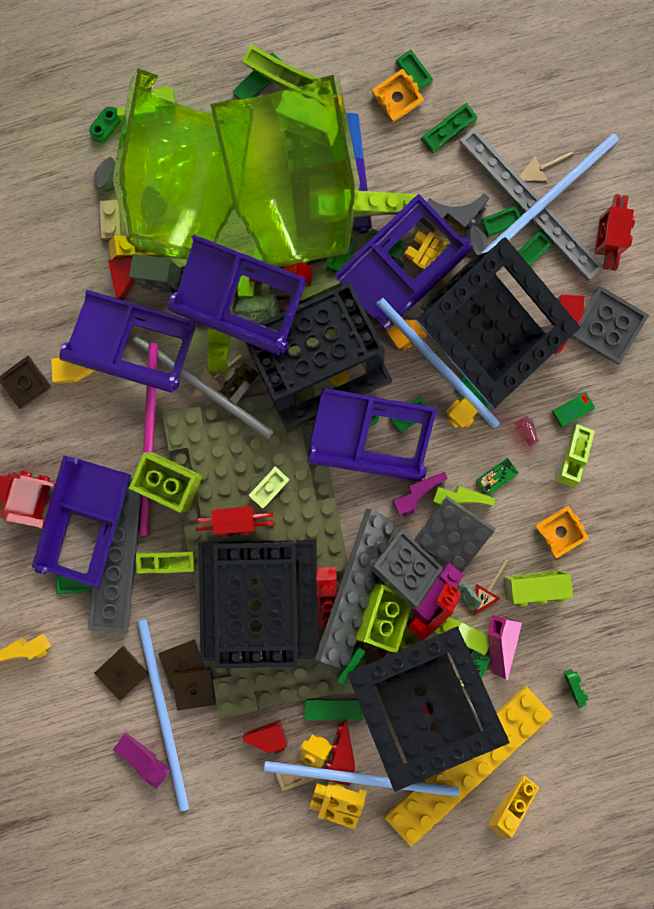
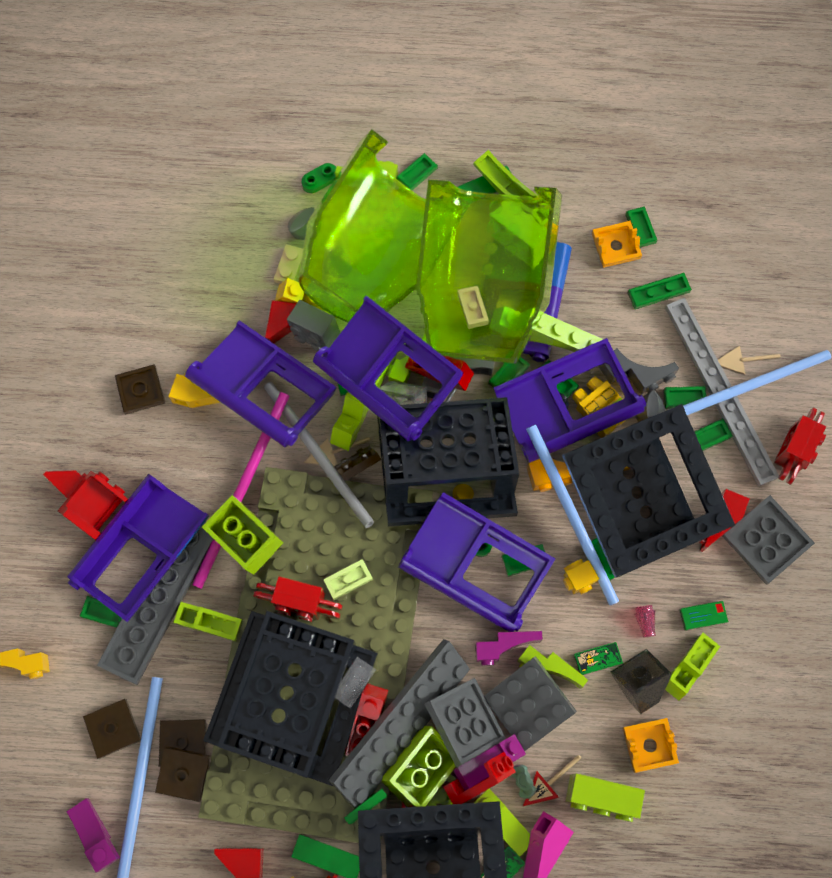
camera: 15 degrees right, 15 degrees down
(192, 87) = (417, 172): none -> green tile
(290, 207) = (472, 307): none -> tan plate
(306, 571) = (354, 682): none -> clear plate
(539, 481) = (642, 680): none -> clear smoke slope

